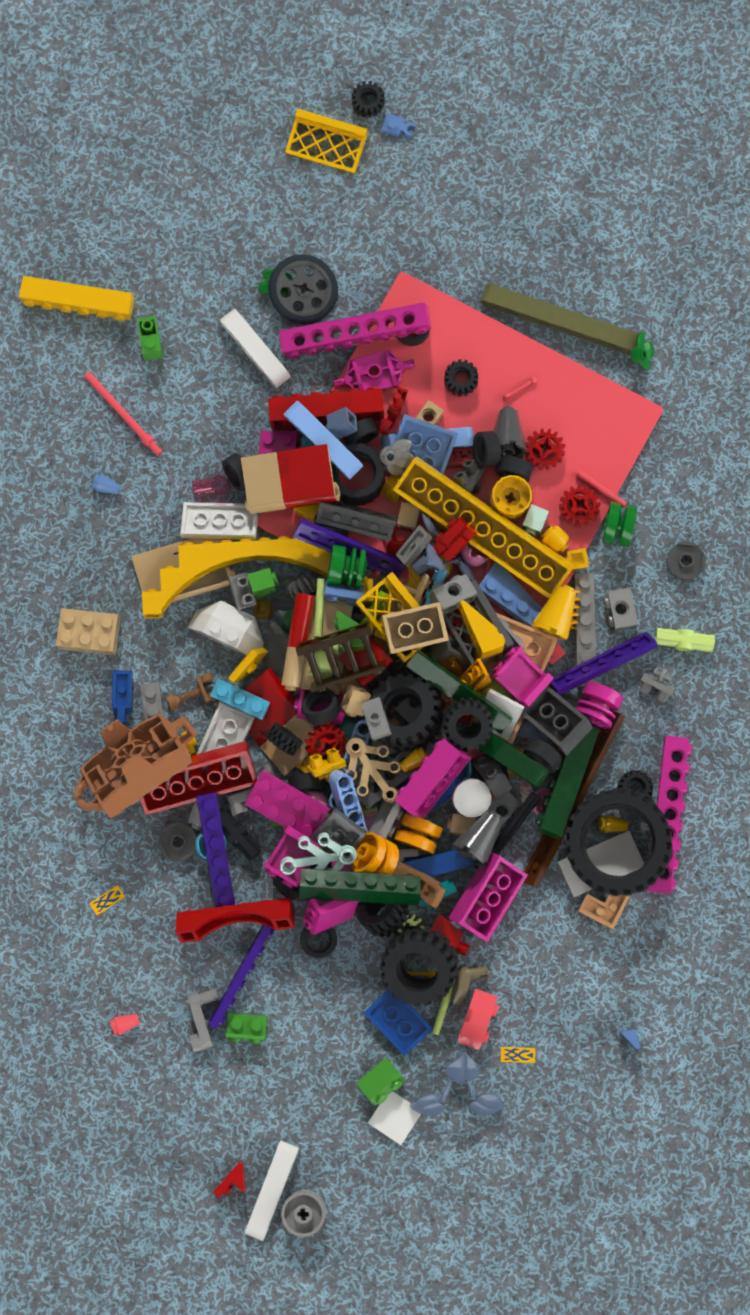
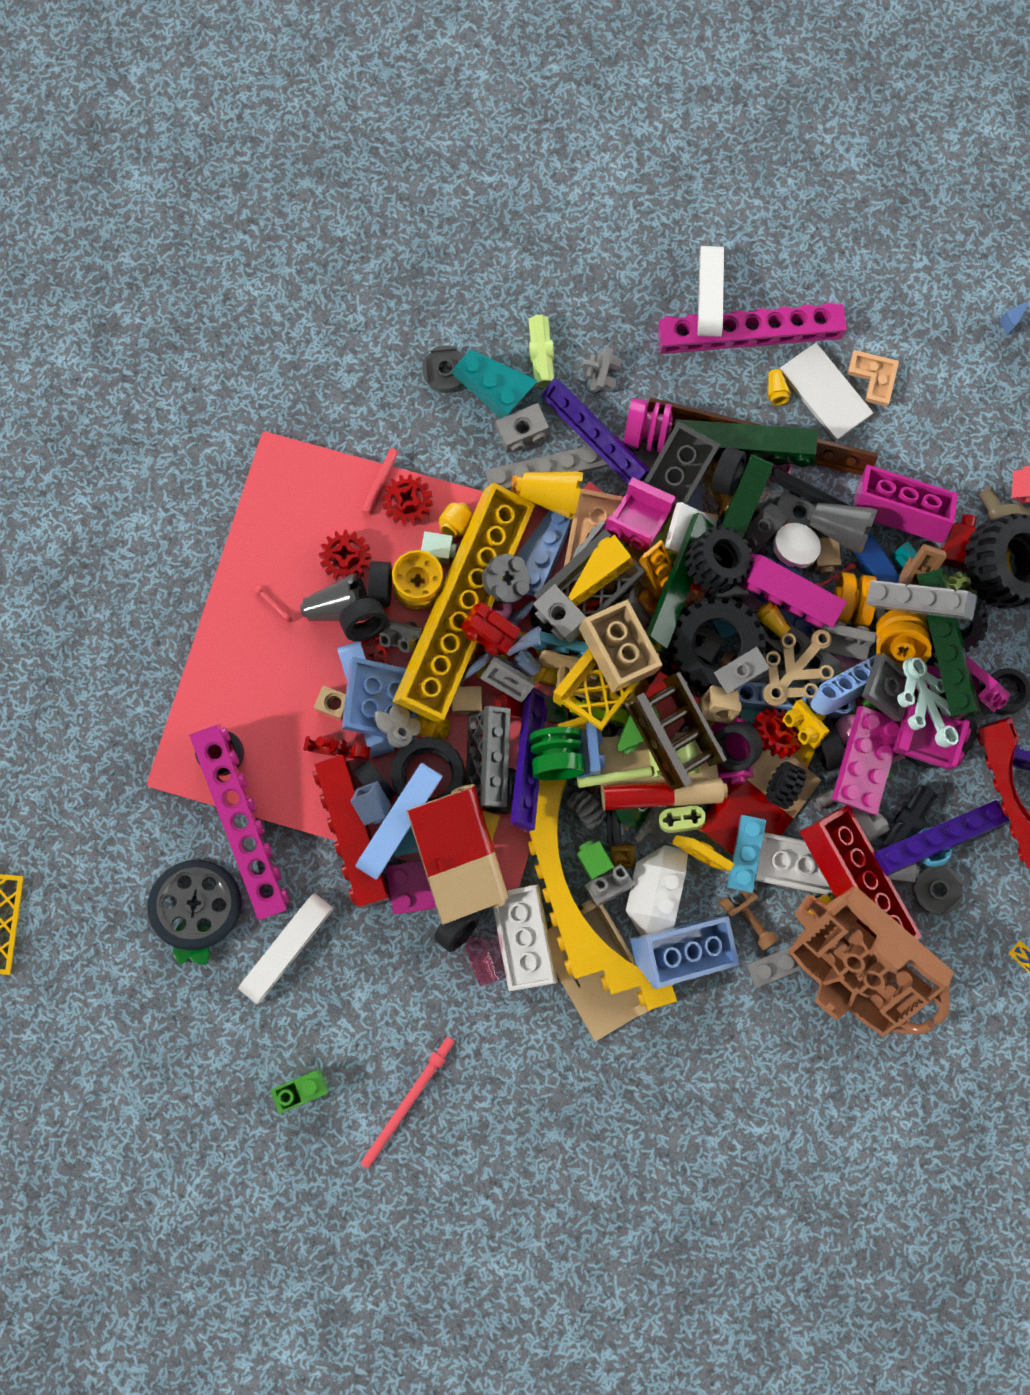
camera: 110 degrees left, 0 degrees up
(76, 297) = (264, 1207): yellow brick -> none
(88, 631) = (707, 1072): tan brick -> none
(105, 485) = (509, 1100): medium blue cone -> none
(122, 694) = (774, 1007): blue hinge -> none
(178, 633) = (685, 951): none -> medium blue slope
(273, 656) = (681, 813): none -> yellowish green beam
(388, 365) = (303, 800): dark pink plate -> none
(396, 868) = (921, 600): none -> light grey brick
(438, 814) = (850, 567): none -> coral hinge
(461, 388) = (264, 666): black tyre -> none
(501, 554) = (518, 583): none -> dark grey plate
(559, 318) = (173, 575): olive beam -> none
(578, 558) = (472, 489): yellow plate -> none
(612, 800) = (839, 332): black tyre -> none
(616, 523) = (420, 447): green wheel -> none
(637, 776) = (729, 358): black tyre -> none
(642, 351) = (200, 467): green plate -> none
(662, 593) = (493, 382): none -> teal wedge
(704, 785) = (710, 291): none -> white beam

